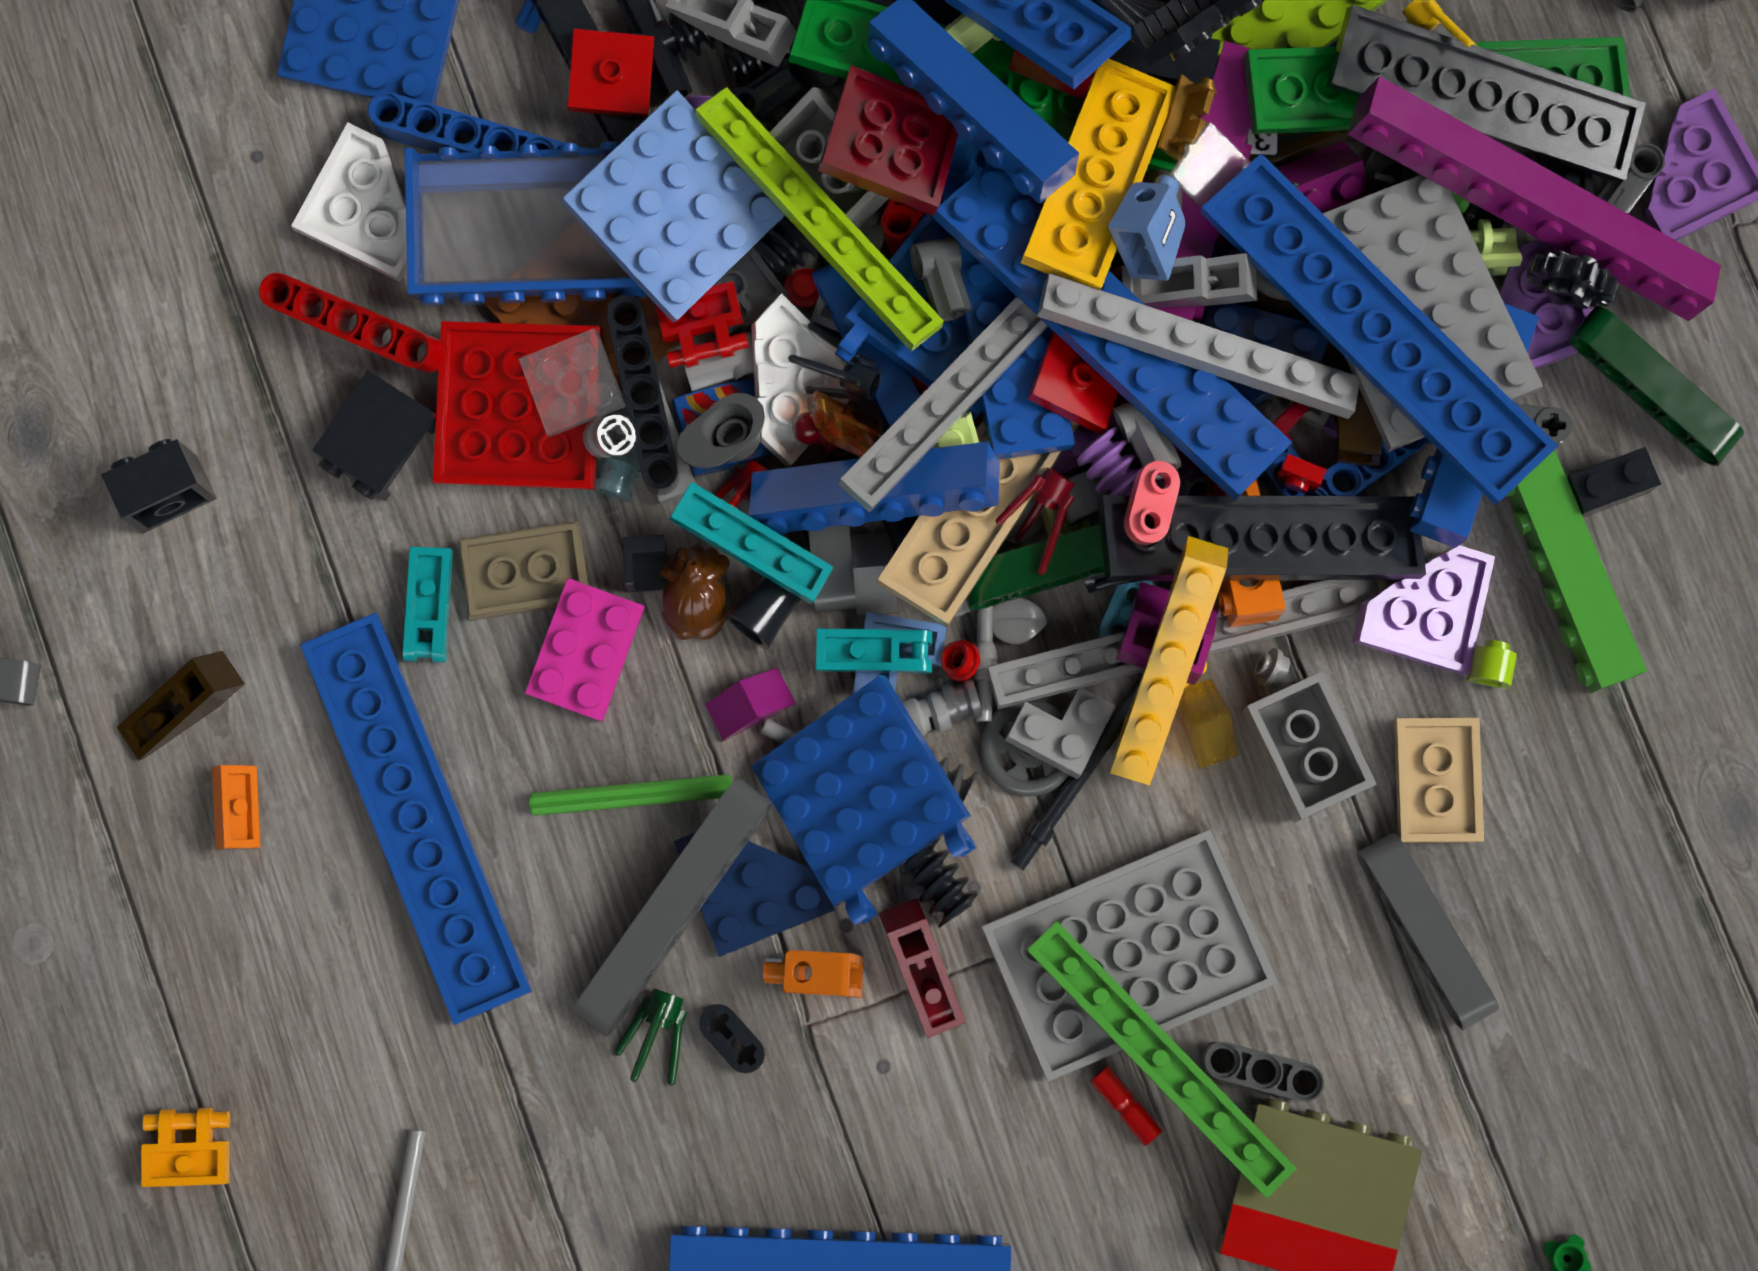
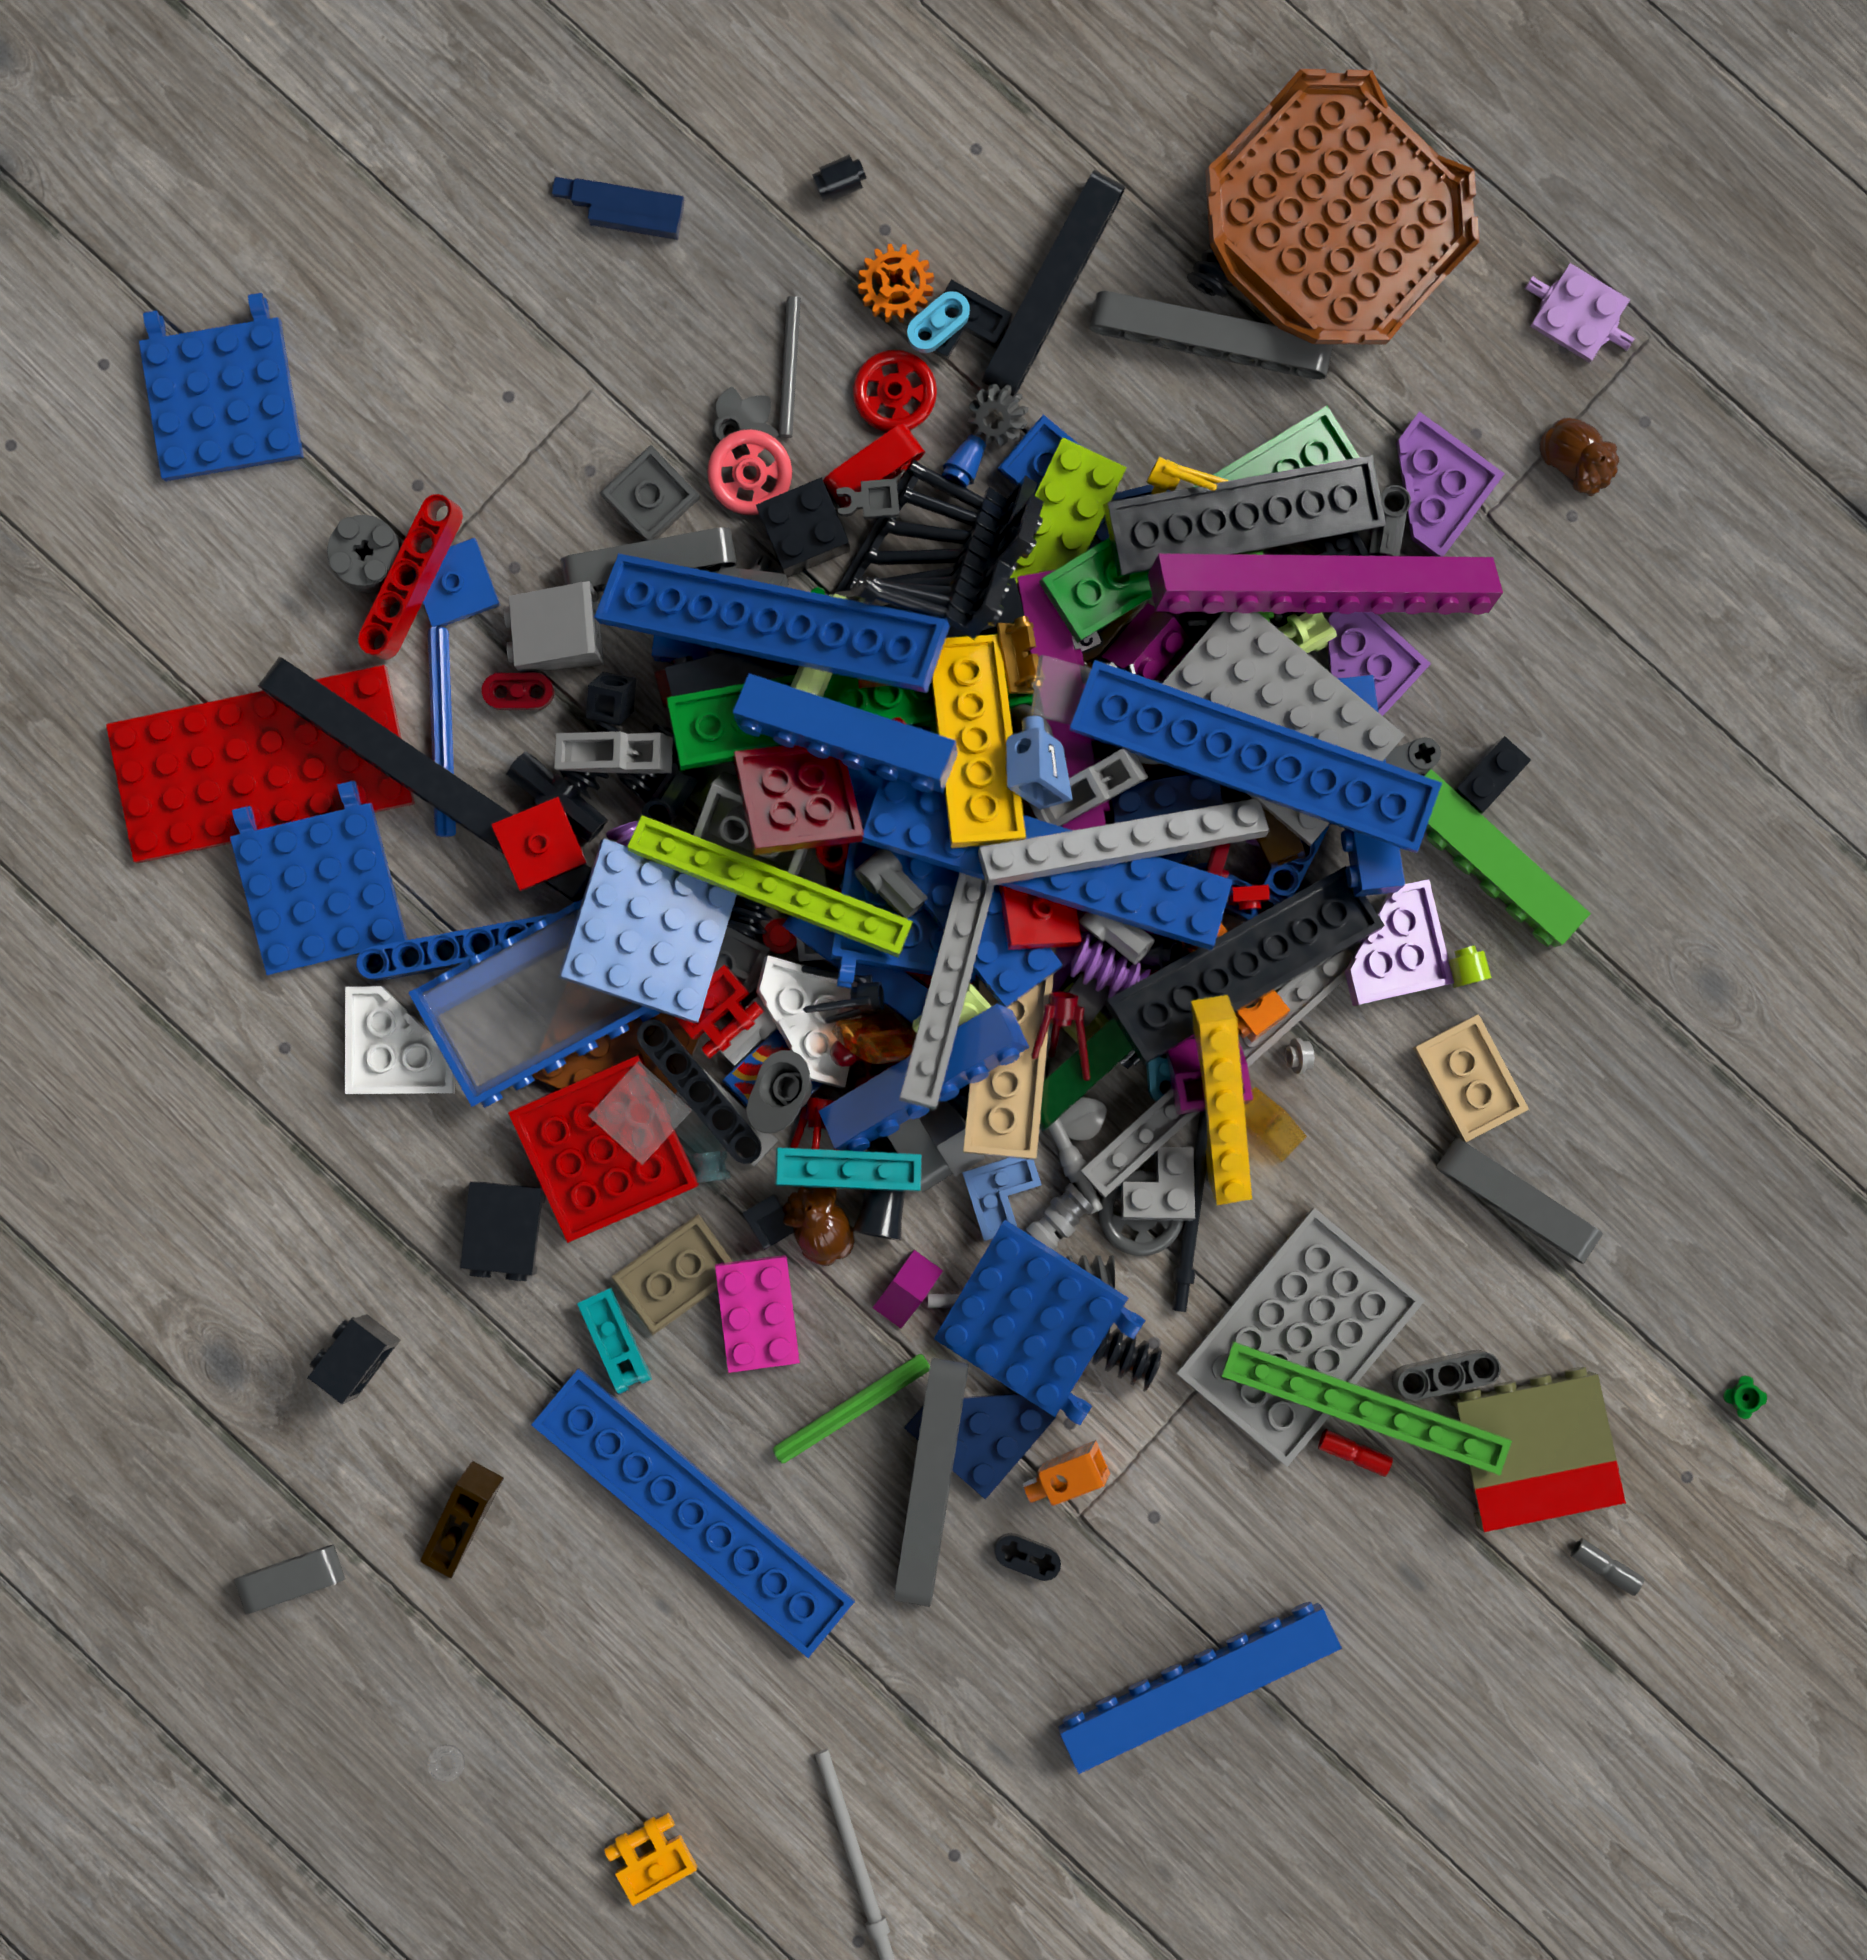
camera: 30 degrees left, 5 degrees up
(236, 807) = (548, 1577): orange plate -> none
(335, 320) = (421, 1151): red beam -> none
(599, 436) = (683, 1142): light grey wheel -> none
(661, 1011) = (963, 1563): dark green plant -> none
(872, 651) = (984, 1203): teal plate -> none
(922, 967) = (1145, 1428): dark red slope -> none
(952, 657) = (1048, 1177): red plate -> none
(1151, 500) = (1148, 986): coral plate -> none
(1308, 747) = (1359, 1106): light grey brick -> none
(1572, 280) = (1385, 632): black gear -> none
(1656, 386) = (1489, 680): dark green beam -> none

